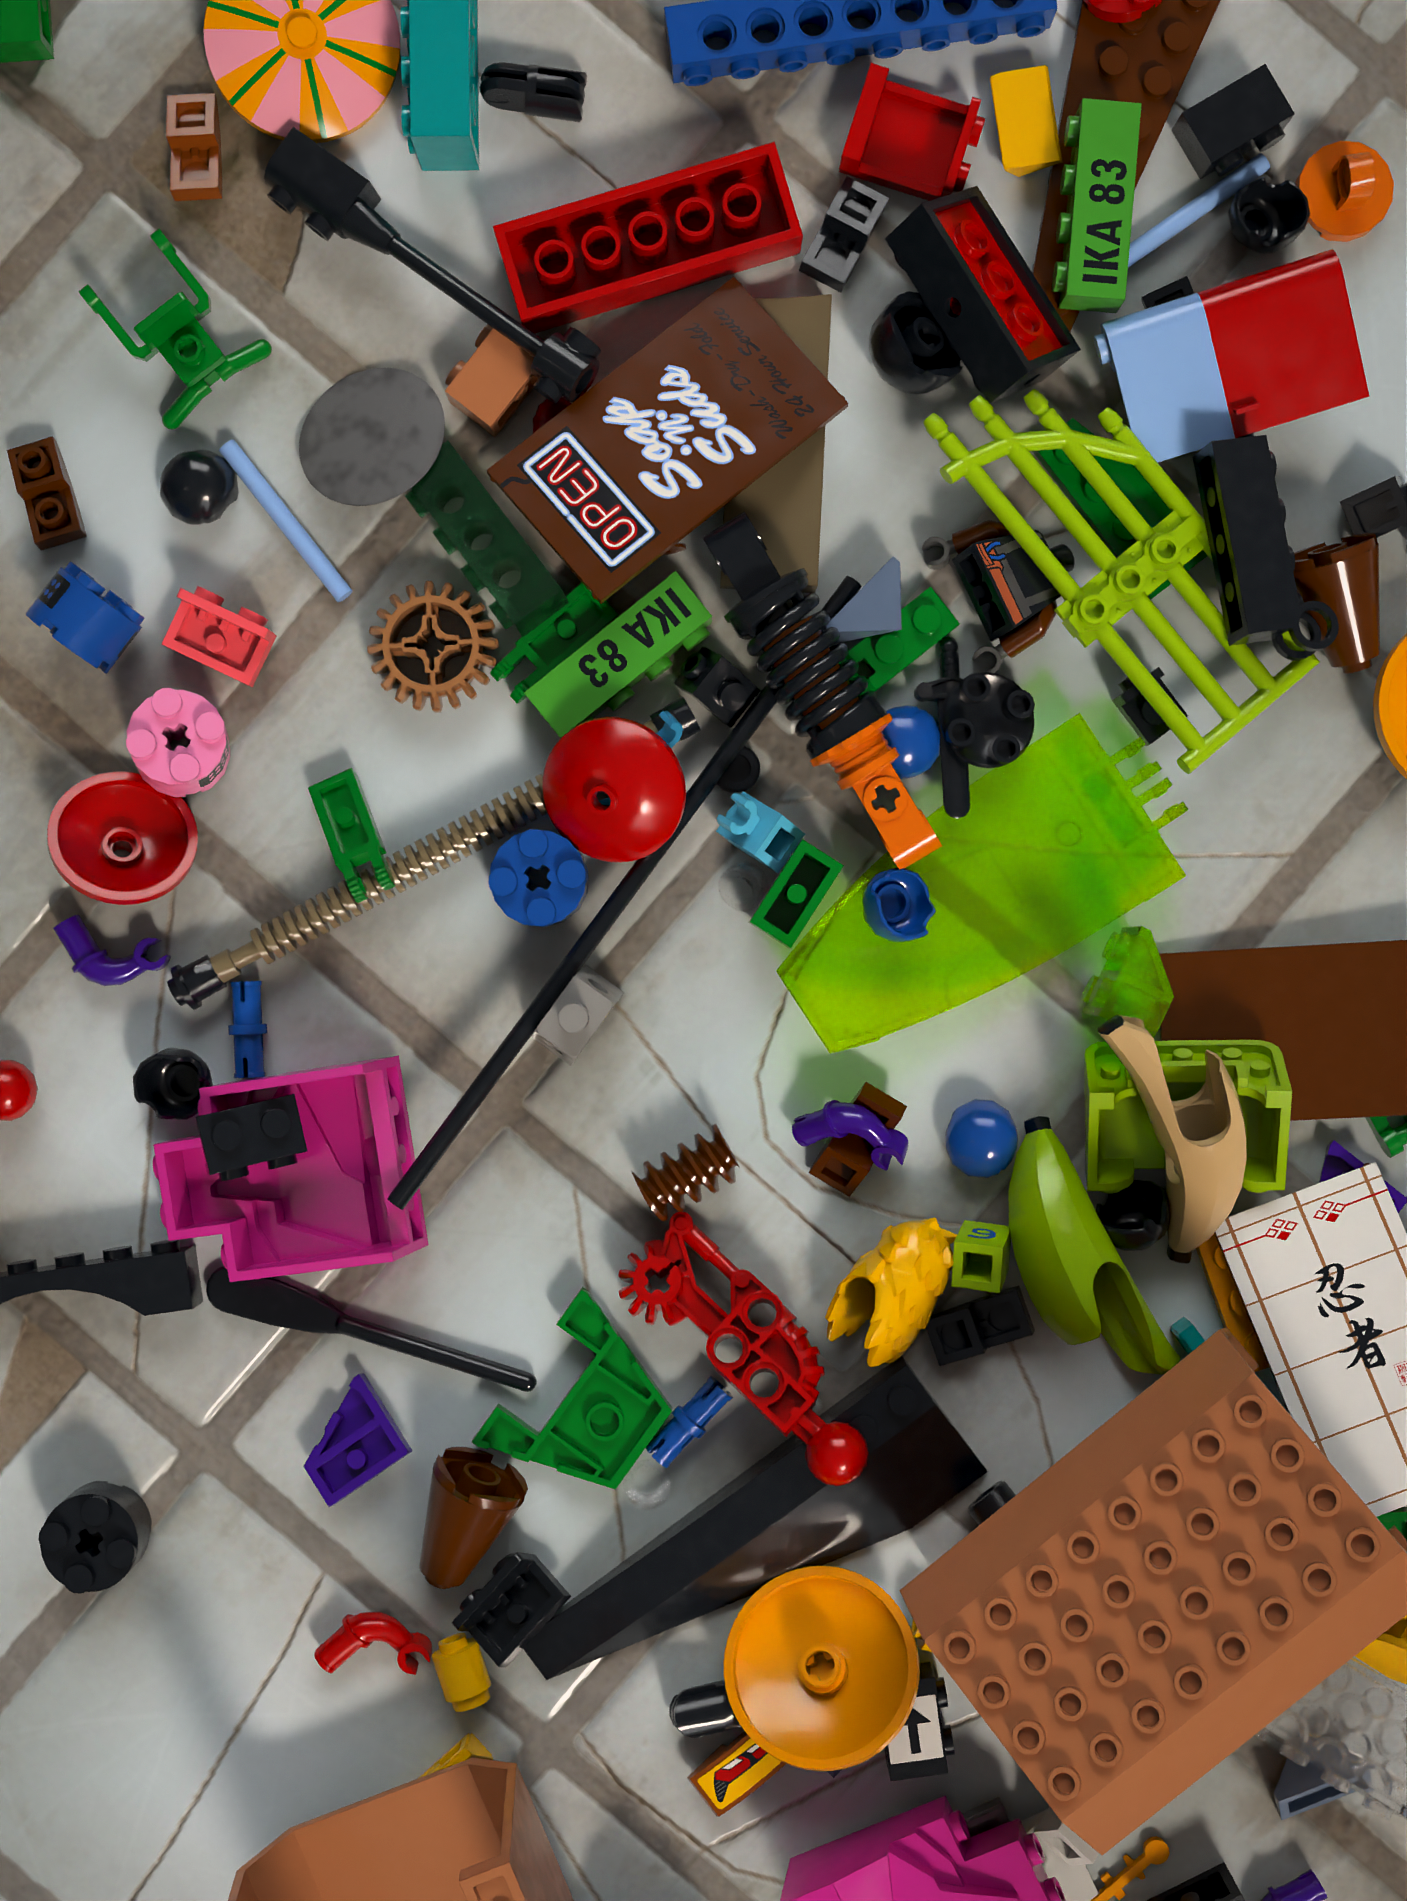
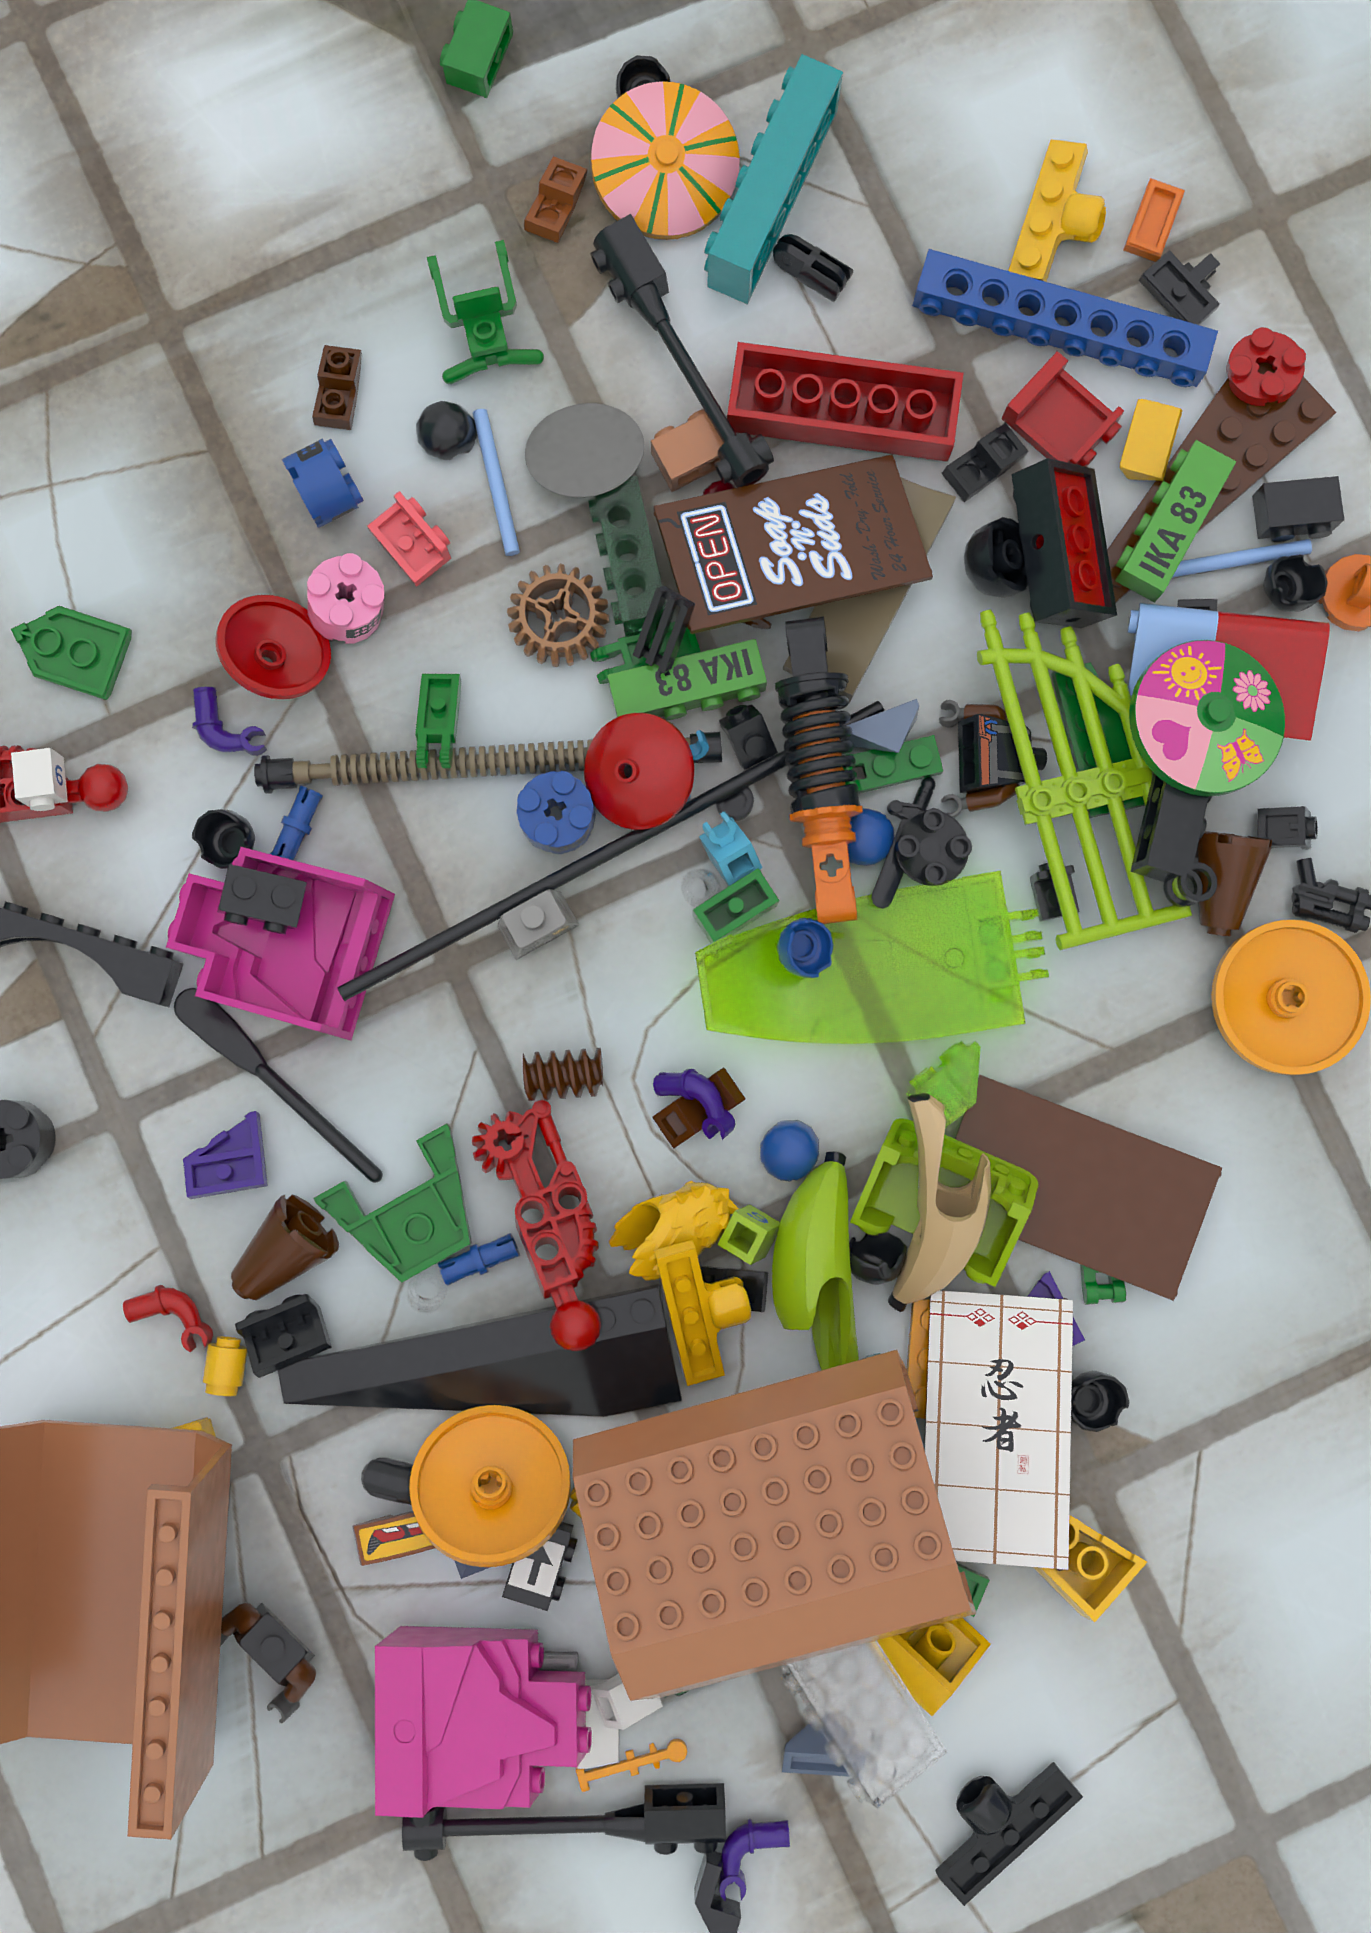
camera: 20 degrees right, 5 degrees down
(566, 645) = (652, 654): none -> black tile
(965, 1368) = (699, 1310): none -> yellow plate
(1241, 428) = (1207, 718): none -> dish

